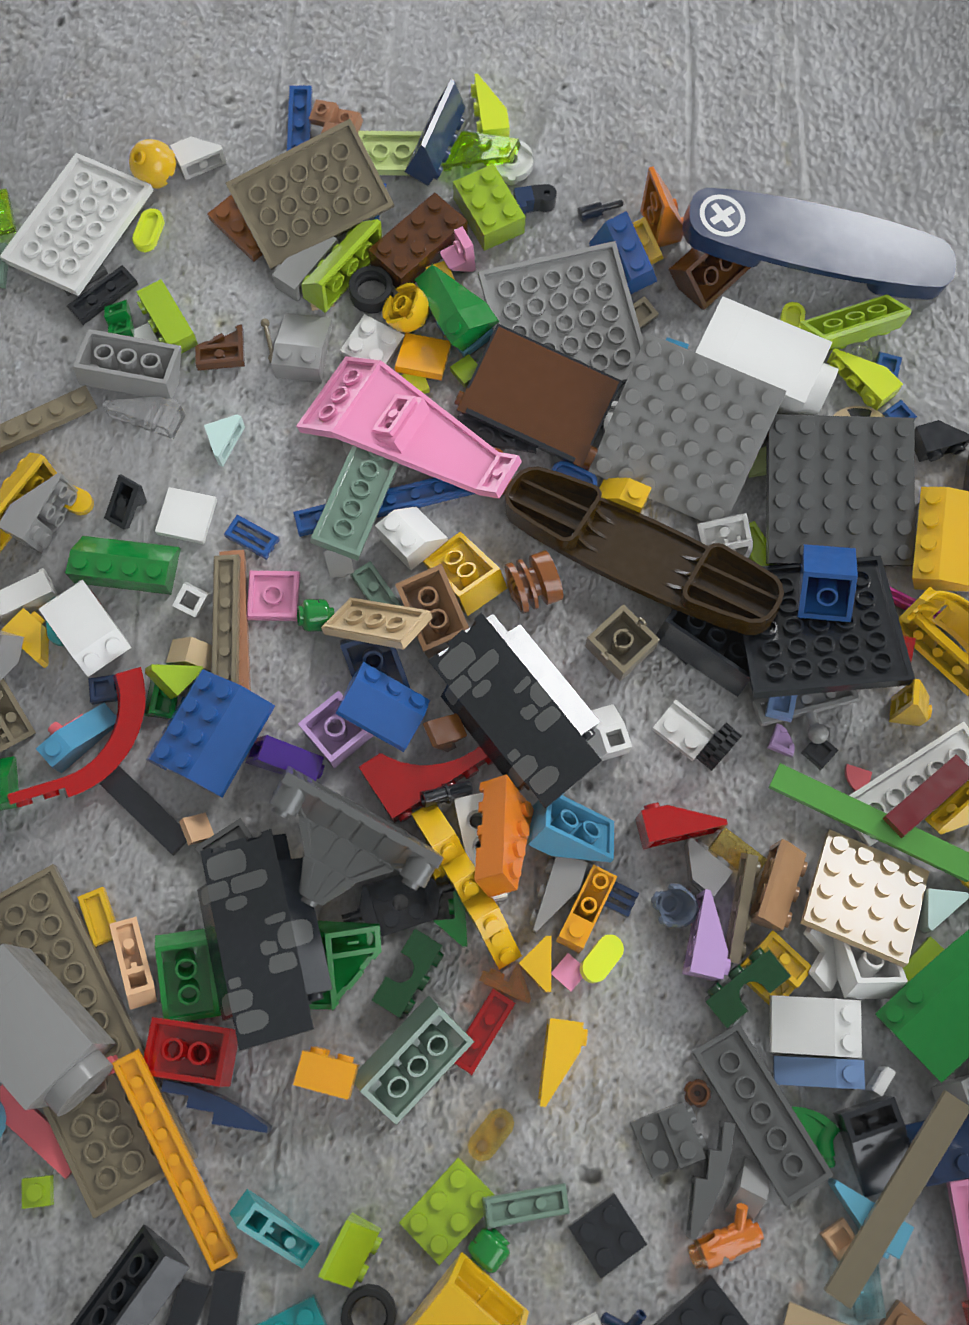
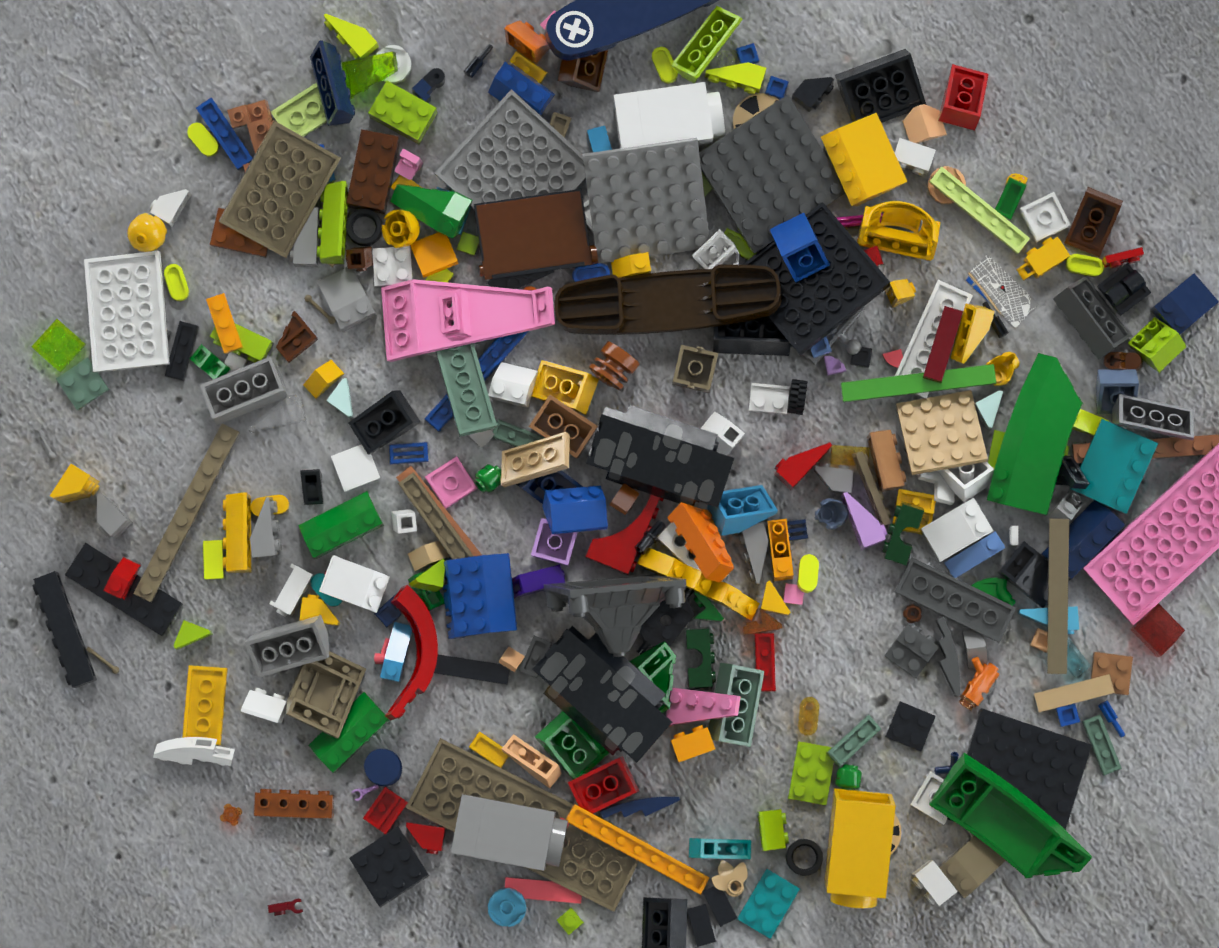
camera: 30 degrees left, 10 degrees up
(159, 286) = (224, 323): none -> light orange plate
(220, 404) = (323, 378): none -> yellow slope
(249, 485) = (384, 421): none -> black slope
(261, 1272) = (730, 875): none -> tan plate
(275, 120) = (203, 139): none -> neon yellow tile
(343, 312) = (359, 258): none -> reddish brown brick
(368, 1032) = (700, 706): none -> bright pink wing
(560, 1051) = (817, 641): yellow slope -> none

